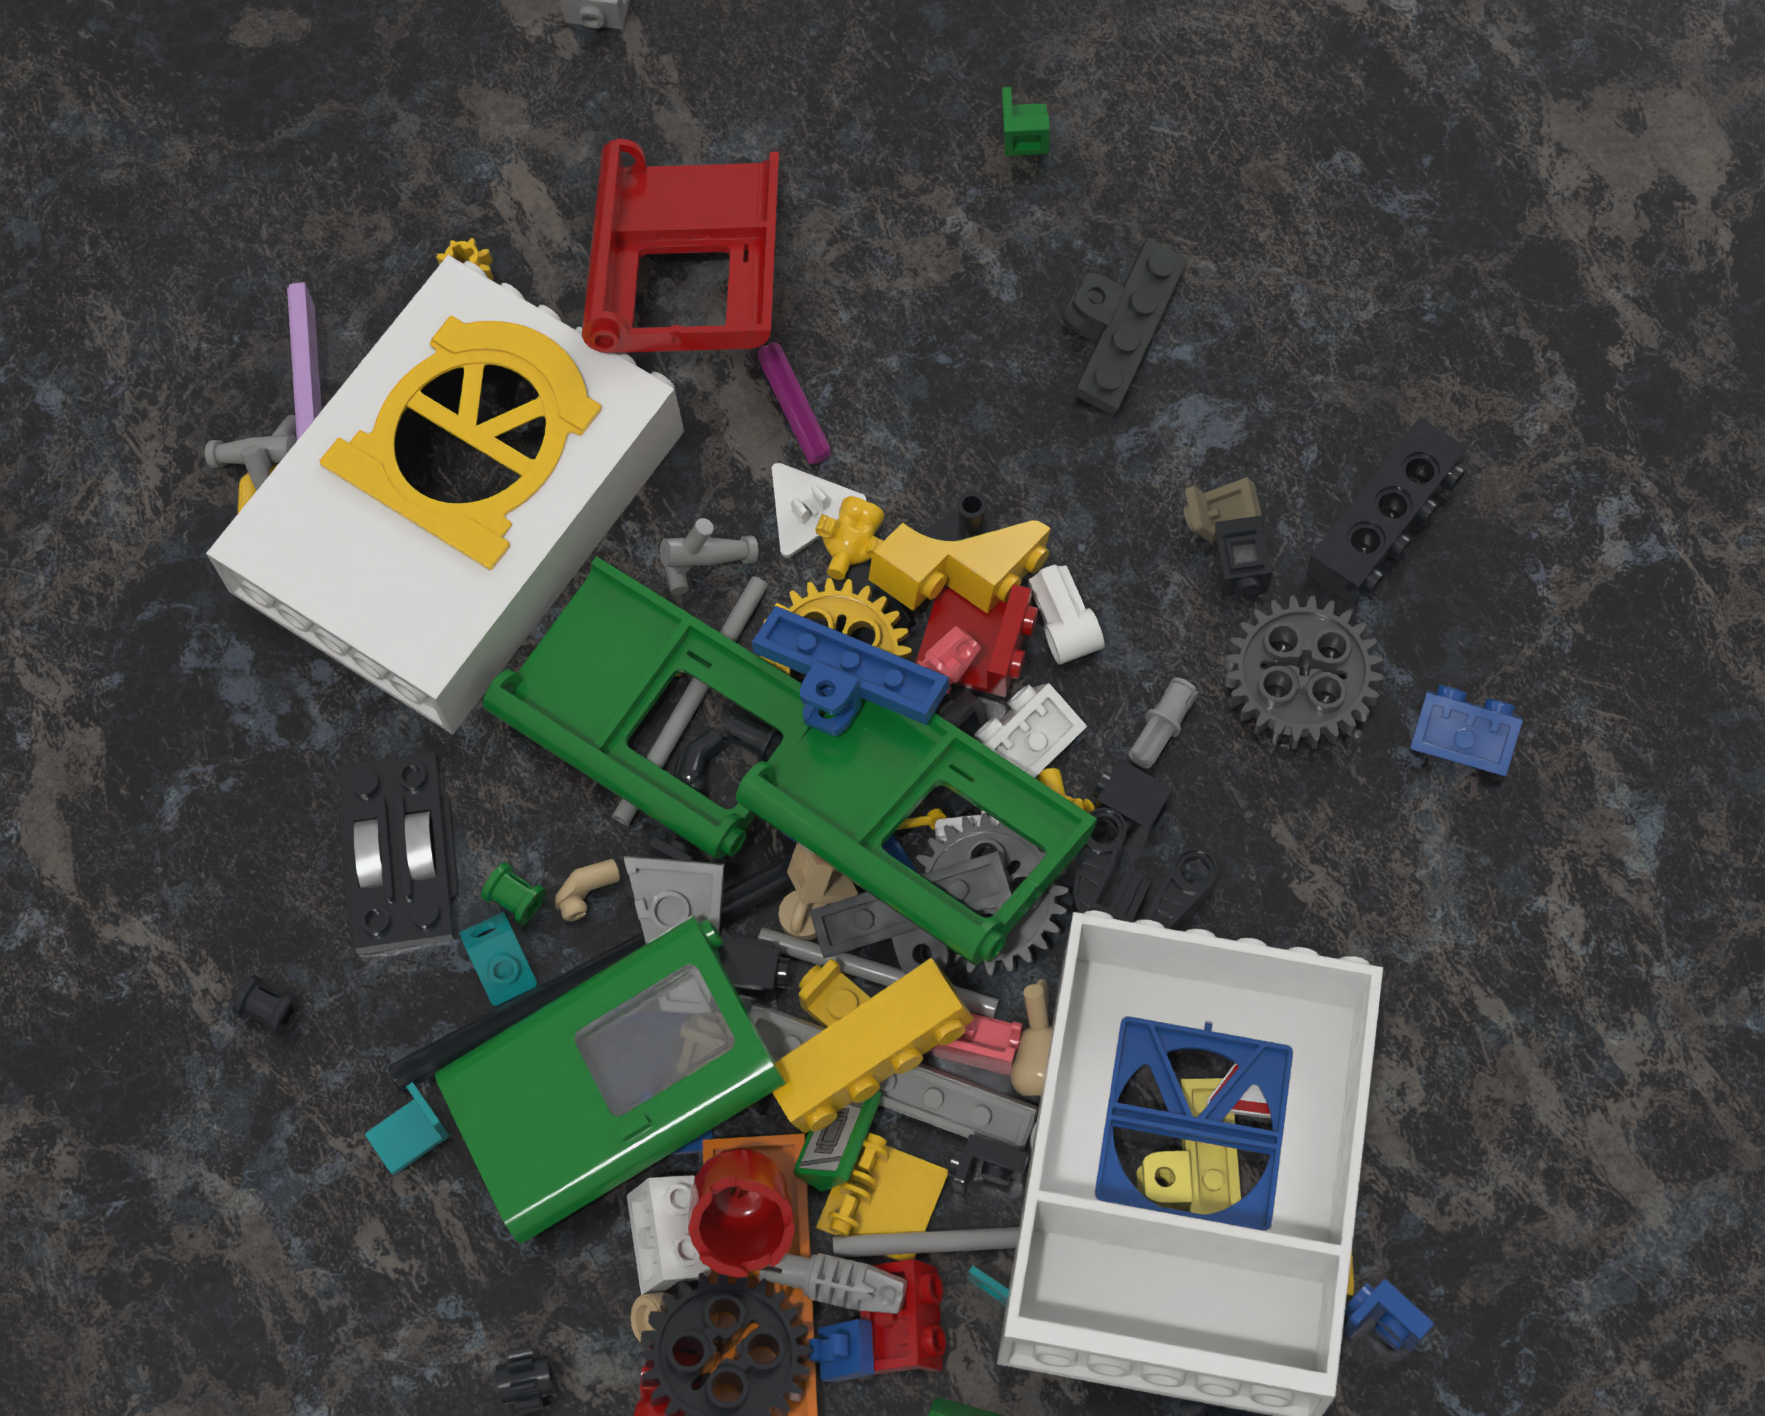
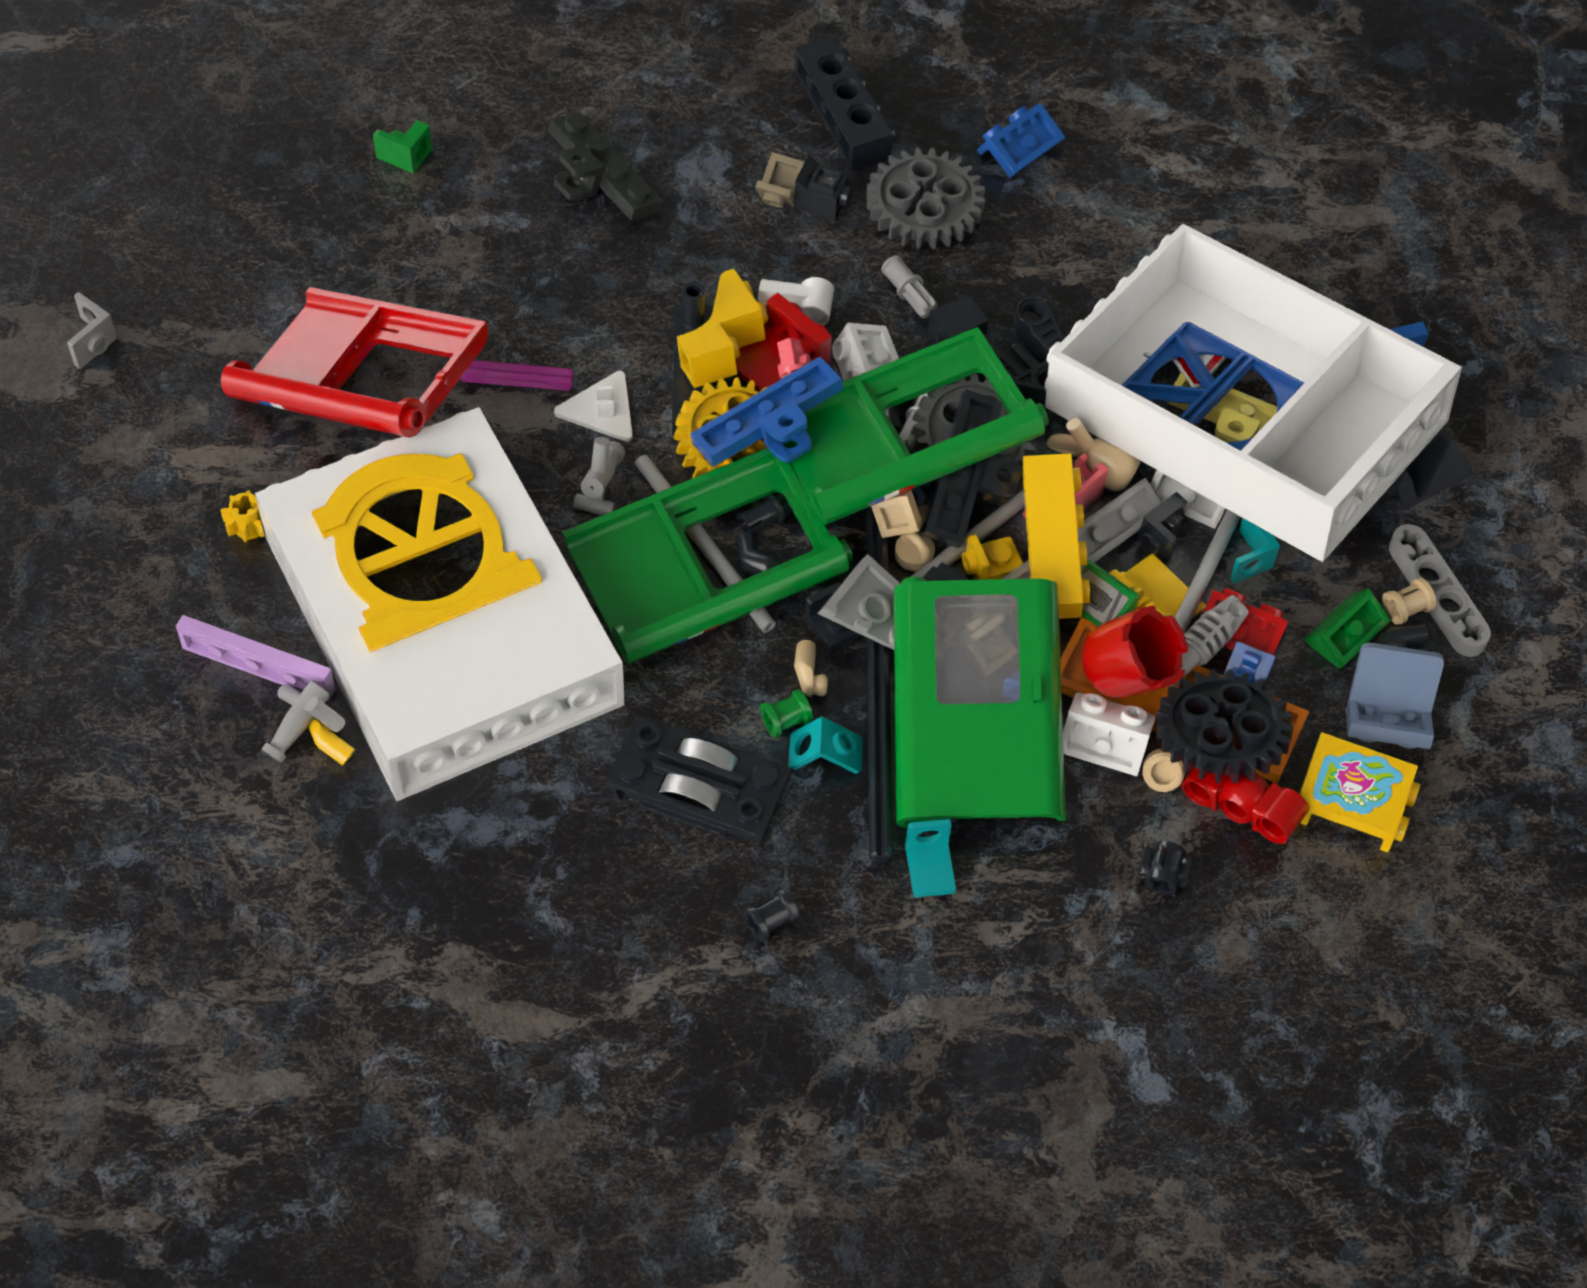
camera: 70 degrees left, 10 degrees down
(851, 536) = (650, 384): yellow piece -> none

